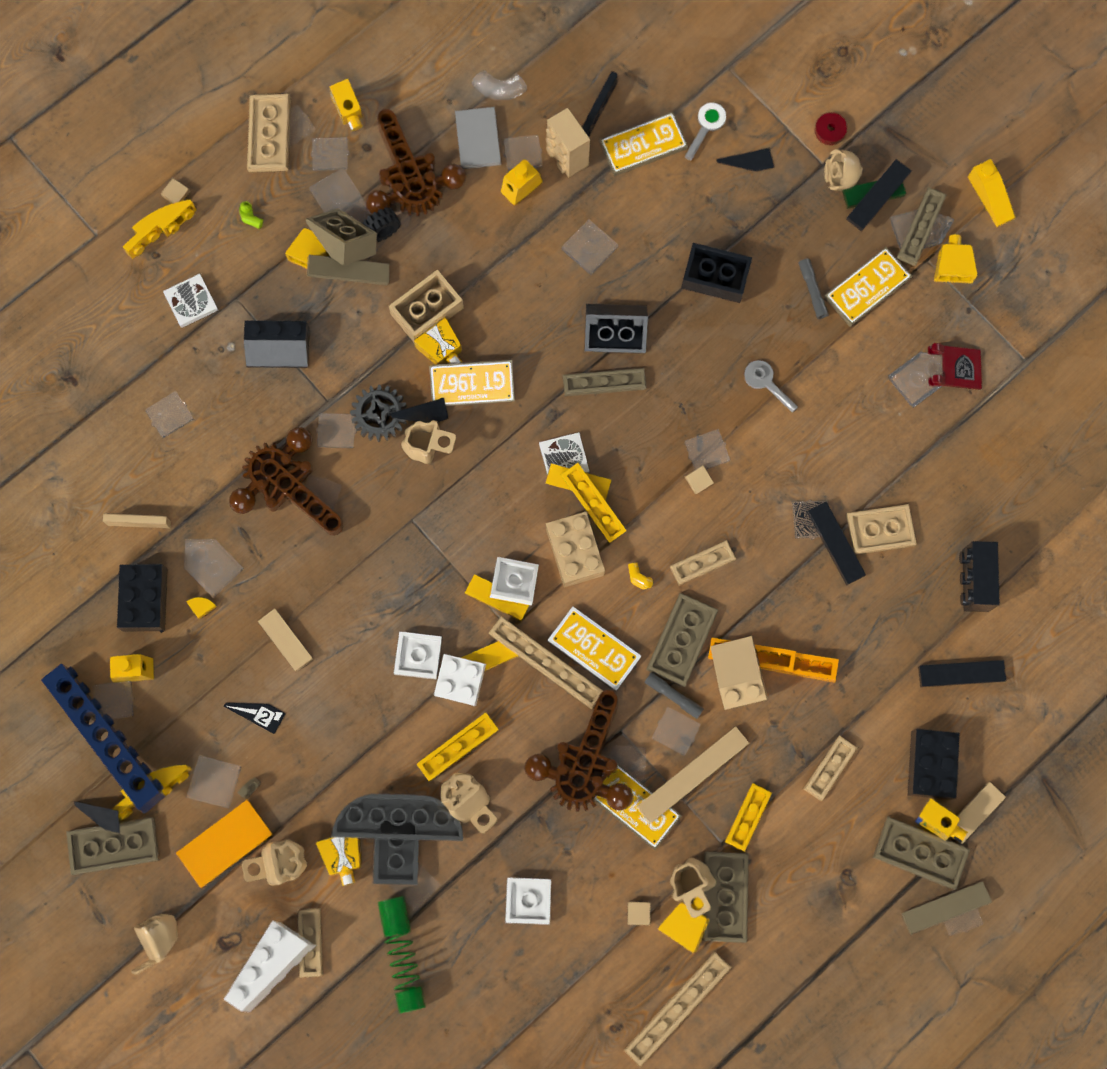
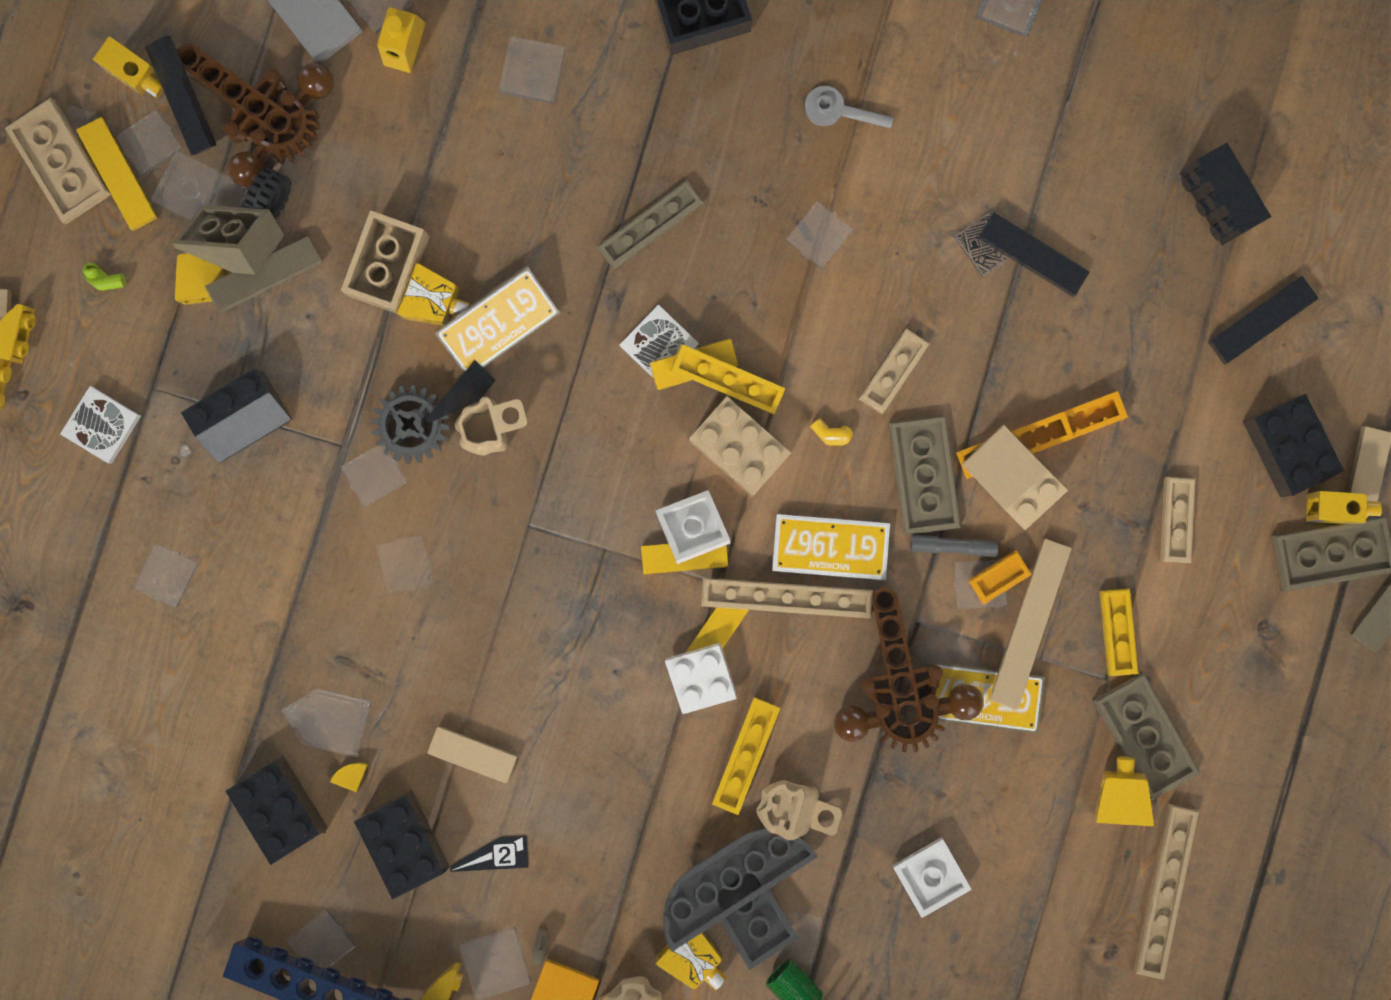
camera: 25 degrees left, 10 degrees up
(129, 520) = (210, 724): tan tile -> none
(130, 668) = (317, 899): yellow torso -> none
(205, 667) = (402, 844): none -> black brick
(298, 160) = (117, 173): none -> yellow tile
(298, 441) = (319, 624): reddish brown piece -> none
(367, 137) = (180, 95): none -> black tile
(418, 655) = (635, 679): white plate -> none
(616, 328) = (624, 151): black slope -> none
(638, 913) = (1061, 814): tan tile -> none
(691, 732) = (999, 577): none -> light orange tile
(692, 881) = (1103, 747): tan piece -> none
(699, 479) = (831, 275): tan tile -> none
(881, 529) = (1074, 206): tan tile -> none

